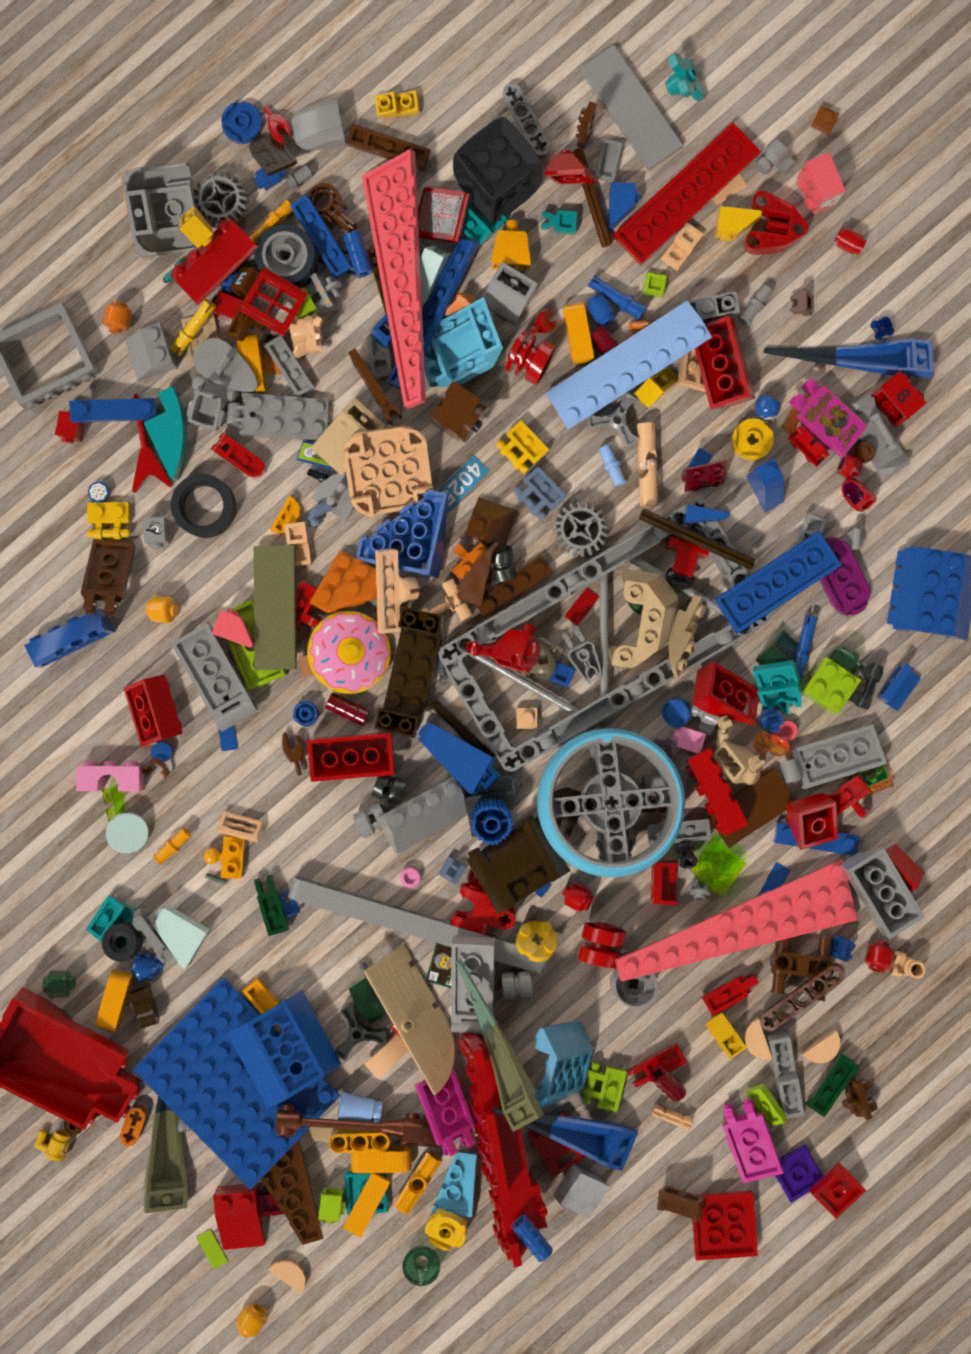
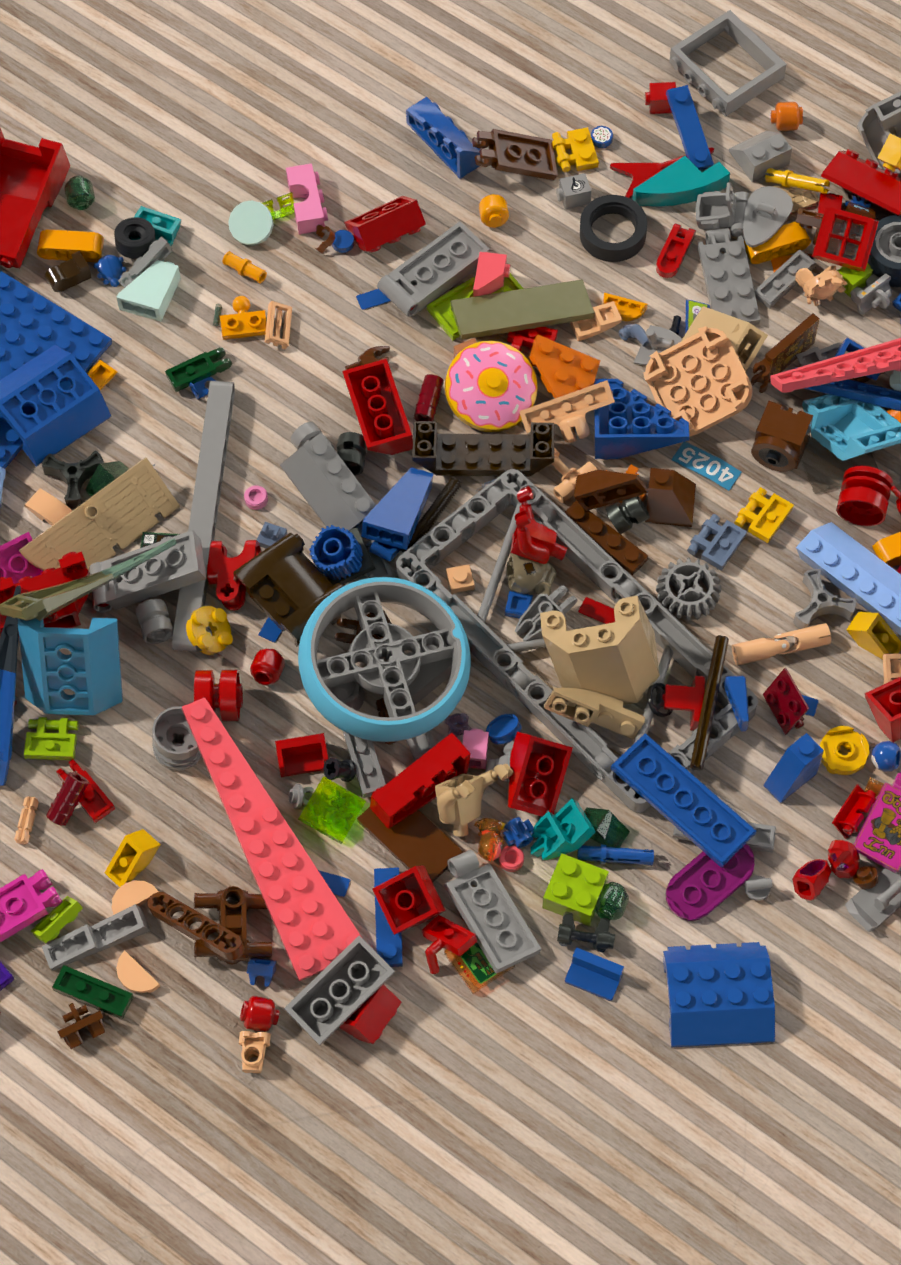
camera: 80 degrees right, 25 degrees down
(301, 718) = (412, 356): blue plate -> none
(612, 466) = (769, 608): light blue pin -> none
(729, 993) = (184, 852): red hinge -> none

